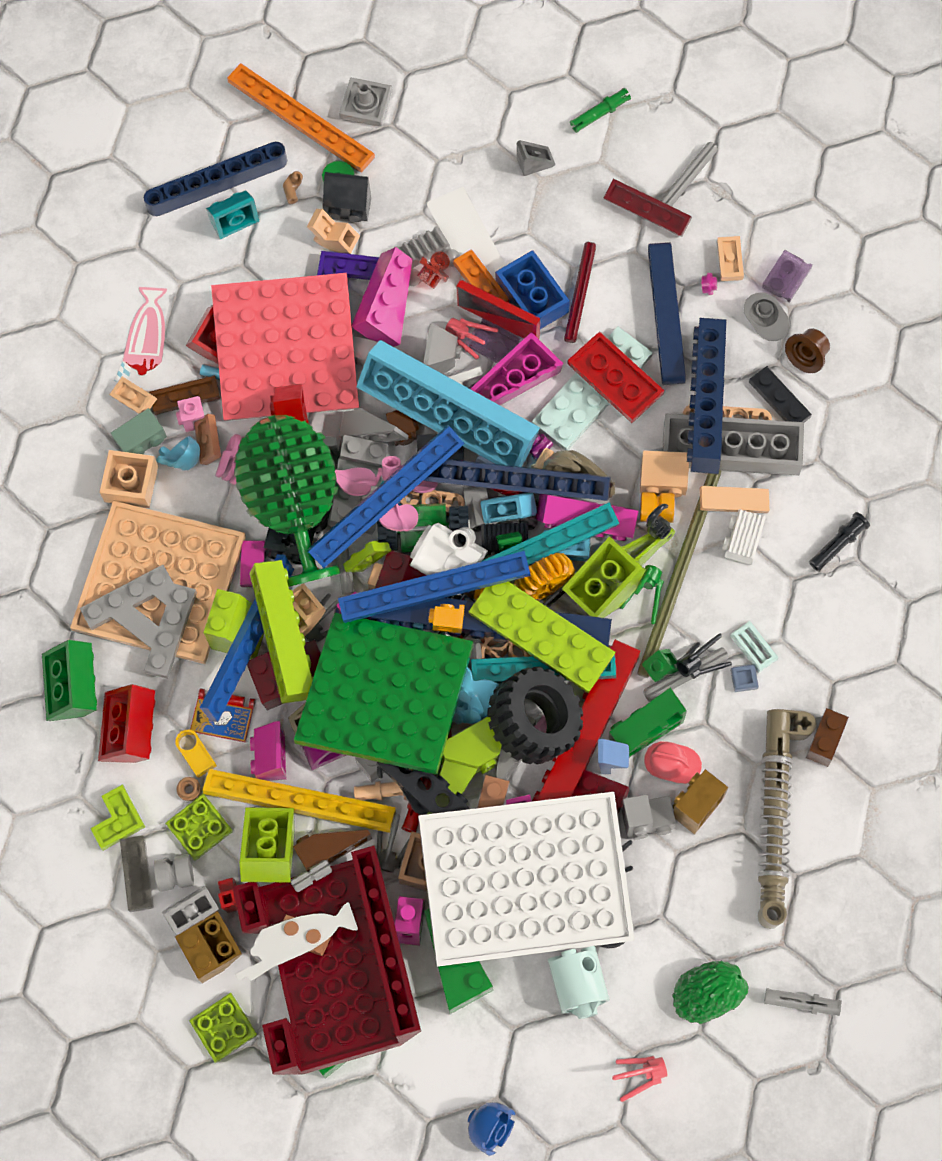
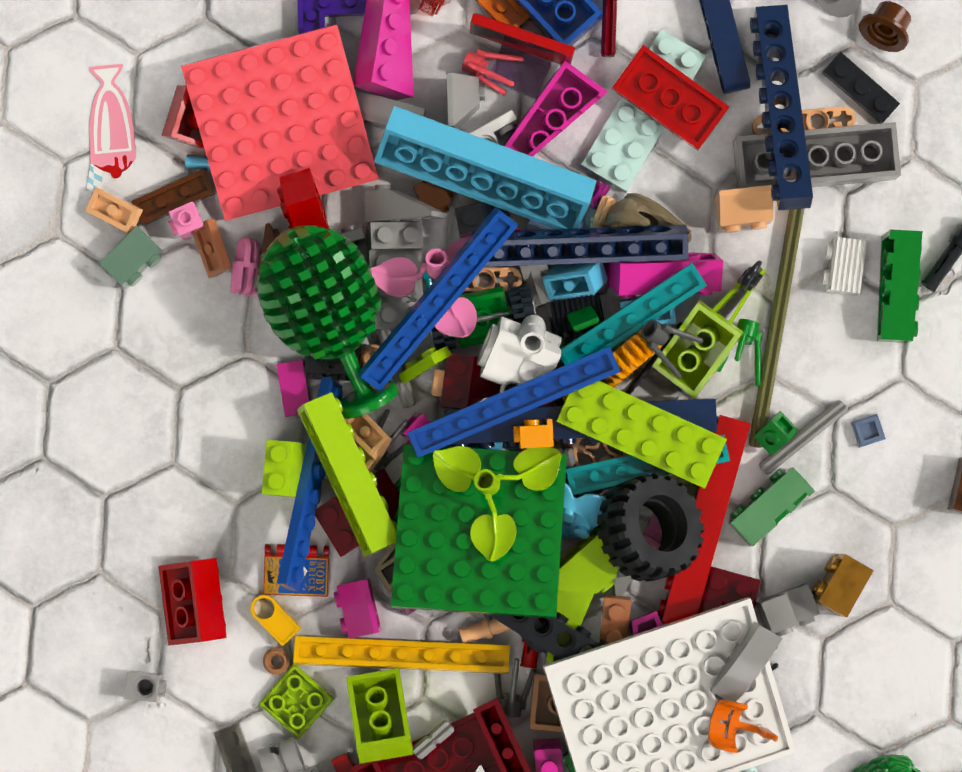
camera: 15 degrees left, 15 degrees up
(61, 783) = (133, 690): none -> light grey brick
(69, 681) = (116, 562): green slope -> none
(124, 819) = (212, 711): lime plate -> none
(129, 478) = (132, 313): light nougat brick -> none
(144, 539) = (190, 427): light nougat plate -> none
(162, 639) = (155, 468): light grey plate -> none
(182, 456) = (186, 273): medium azure piece -> none
(328, 846) = (441, 703): reddish brown slope -> none
(377, 633) = (461, 465): none -> lime plant
(570, 556) = (658, 334): none -> dark grey plant
(571, 888) = (717, 730): none -> orange helmet
(599, 845) = (745, 662): none -> light grey slope
(612, 755) = (741, 550): medium blue slope -> none
(650, 501) = (742, 247): light orange wheel -> none
(672, 762) = (803, 539): coral piece -> none
(690, 662) = (807, 429): black plant -> none
(732, 499) = (827, 223): light nougat tile -> none
(765, 662) = (889, 408): light aqua tile -> none
(775, 798) = (924, 575): dark tan piece -> none
(788, 558) = (899, 286): none -> green wedge

